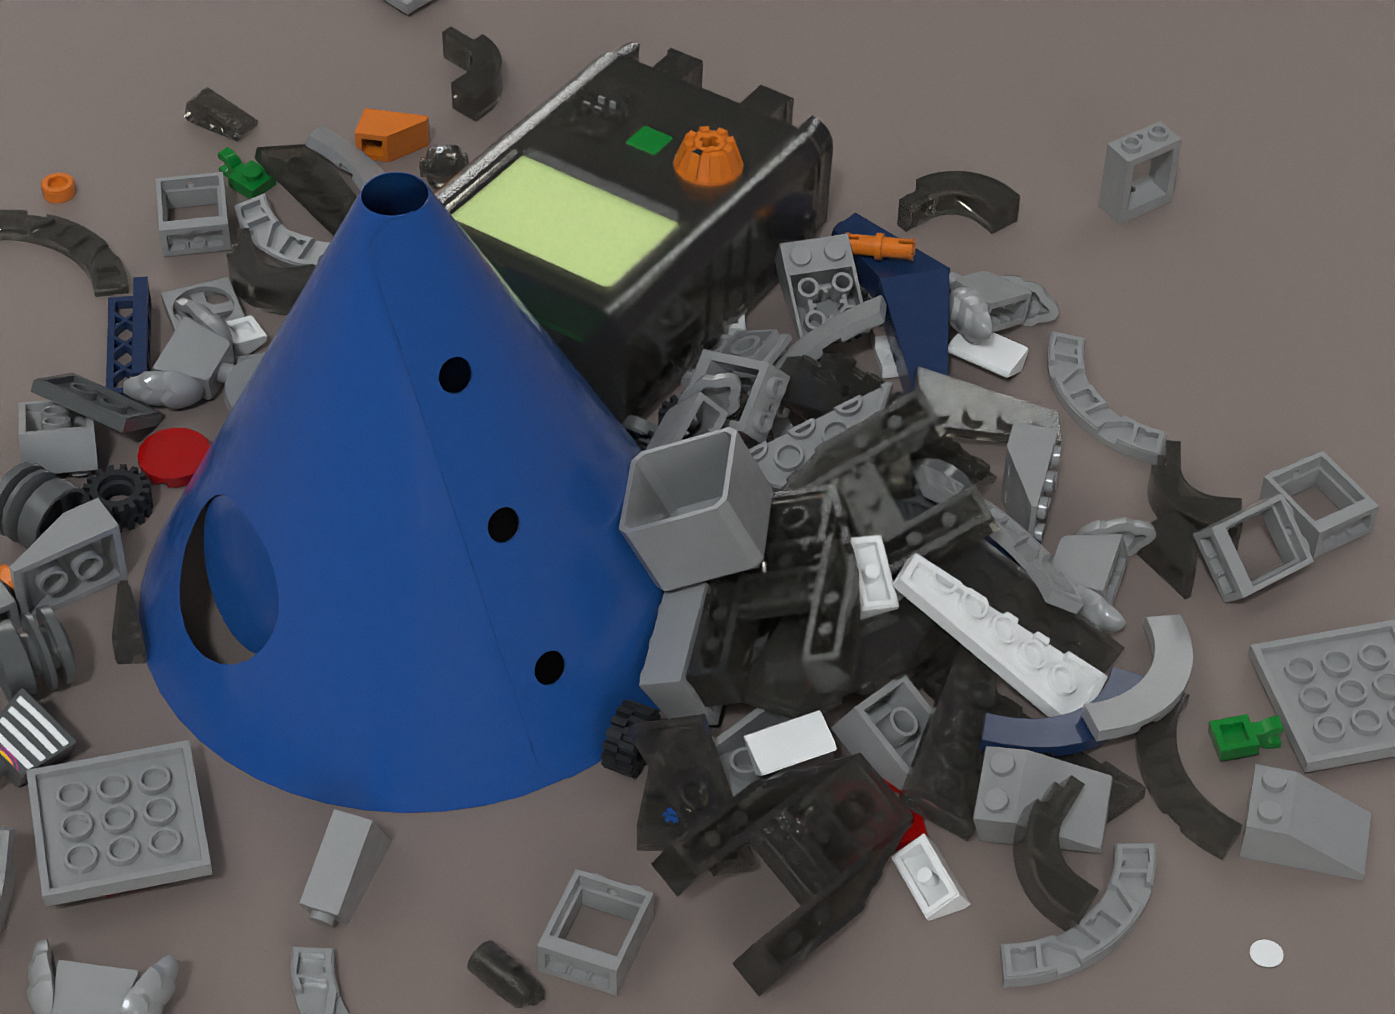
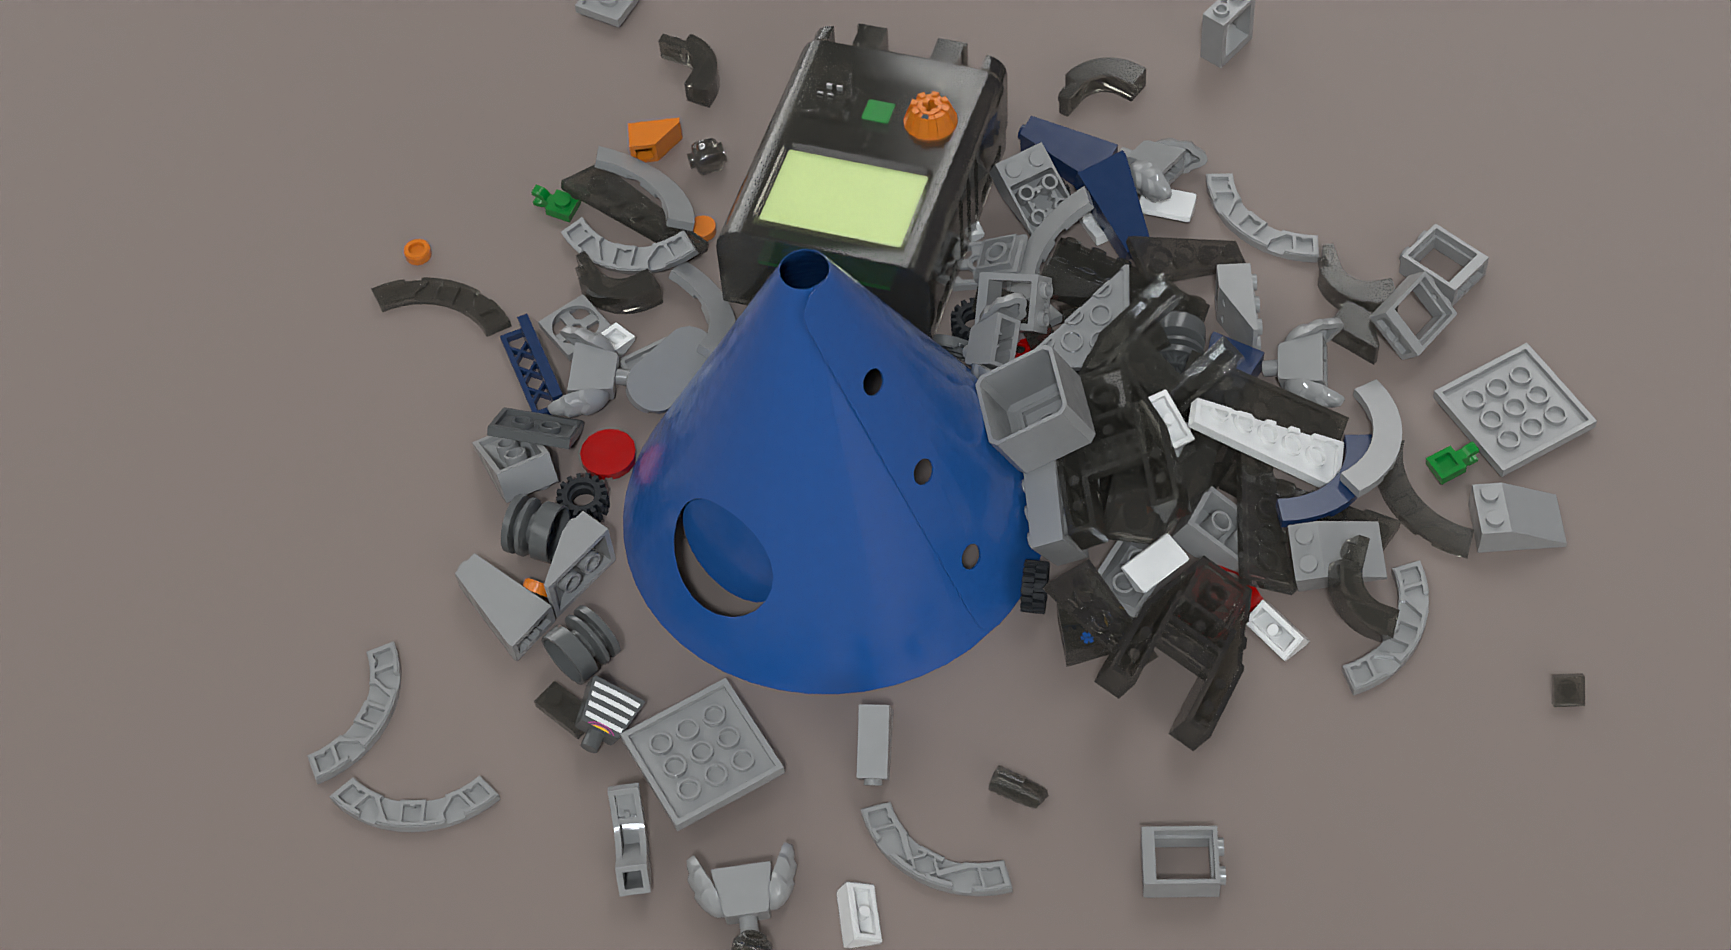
camera: 10 degrees left, 10 degrees up
(127, 631) = (641, 606): clear smoke slope -> none
(195, 234) = (539, 267): light grey window -> none
(205, 107) = (508, 147): clear smoke slope -> none
(585, 964) = (1066, 763): light grey window -> none
(882, 246) = (1064, 141): orange pin -> none
(1020, 544) = (1255, 361): light grey tile -> none
(1266, 953) = (1519, 619): white sticker -> none

